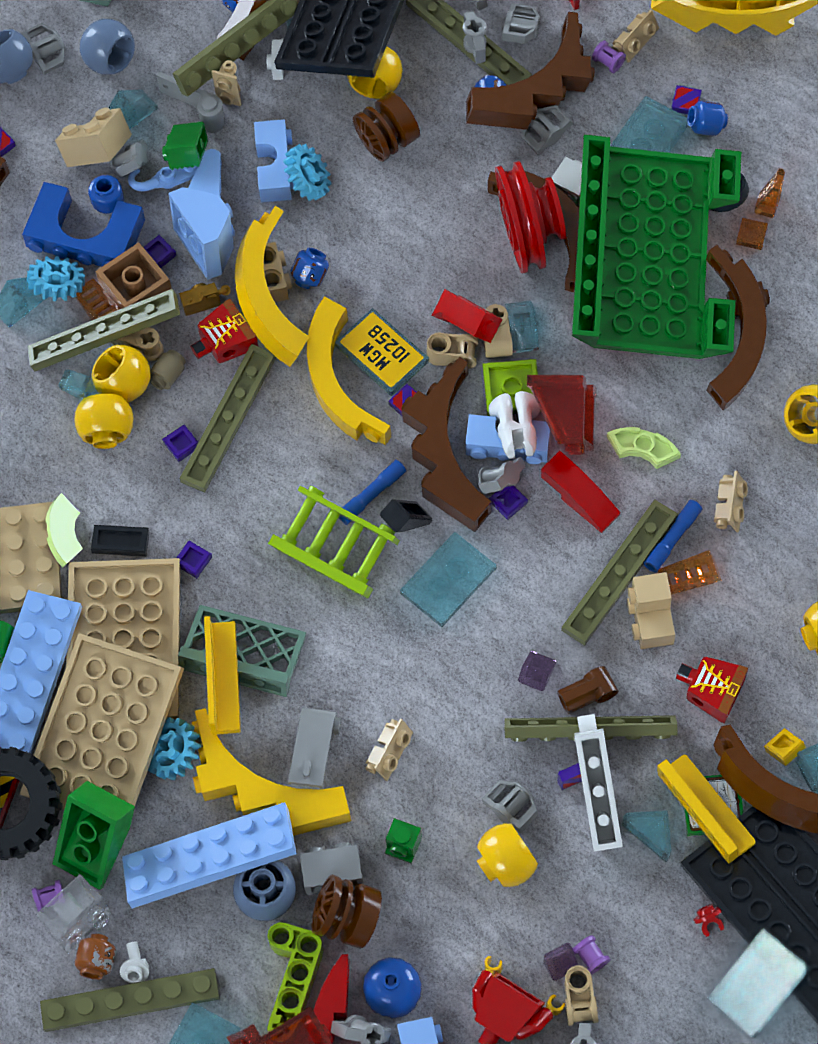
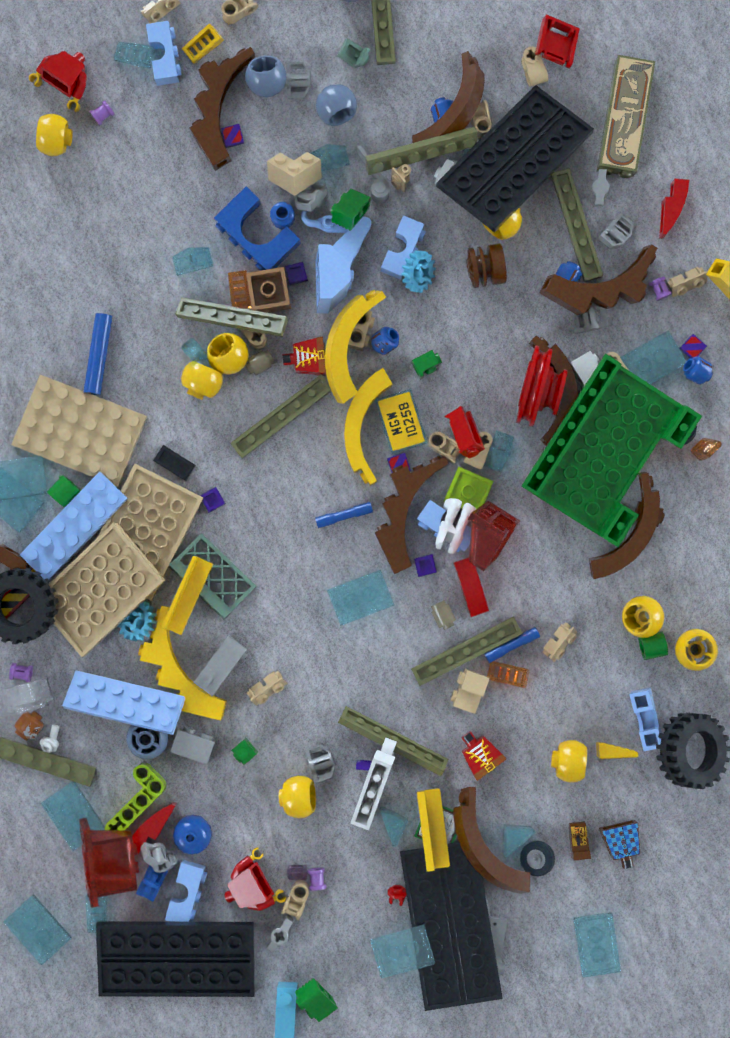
camera: 20 degrees right, 20 degrees up
(55, 278) = (221, 259): medium azure gear -> none
(61, 531) = (142, 433): yellowish green tile -> none
(92, 833) = (63, 651): green slope -> none
(180, 443) = (244, 416): dark purple tile -> none
(202, 297) = (309, 323): pearl gold piece -> none
(335, 567) = (283, 539): lime fence -> none
(346, 911) = (186, 782): reddish brown wheel -> none
(374, 271) = (426, 363): none -> green brick
(405, 515) = (353, 547): black slope -> none
(475, 40) = (580, 229): light grey piece -> none
(501, 475) = (425, 548): light grey piece -> none
(536, 670) = (382, 685): clear purple slope -> none
(565, 543) = (443, 615): none -> dark tan brick
(594, 687) = (409, 717): reddish brown piece -> none
(643, 444) = (529, 573): yellowish green tile -> none
(752, 233) = (679, 465): clear orange tile -> none
(784, 747) = (501, 815): yellow tile -> none

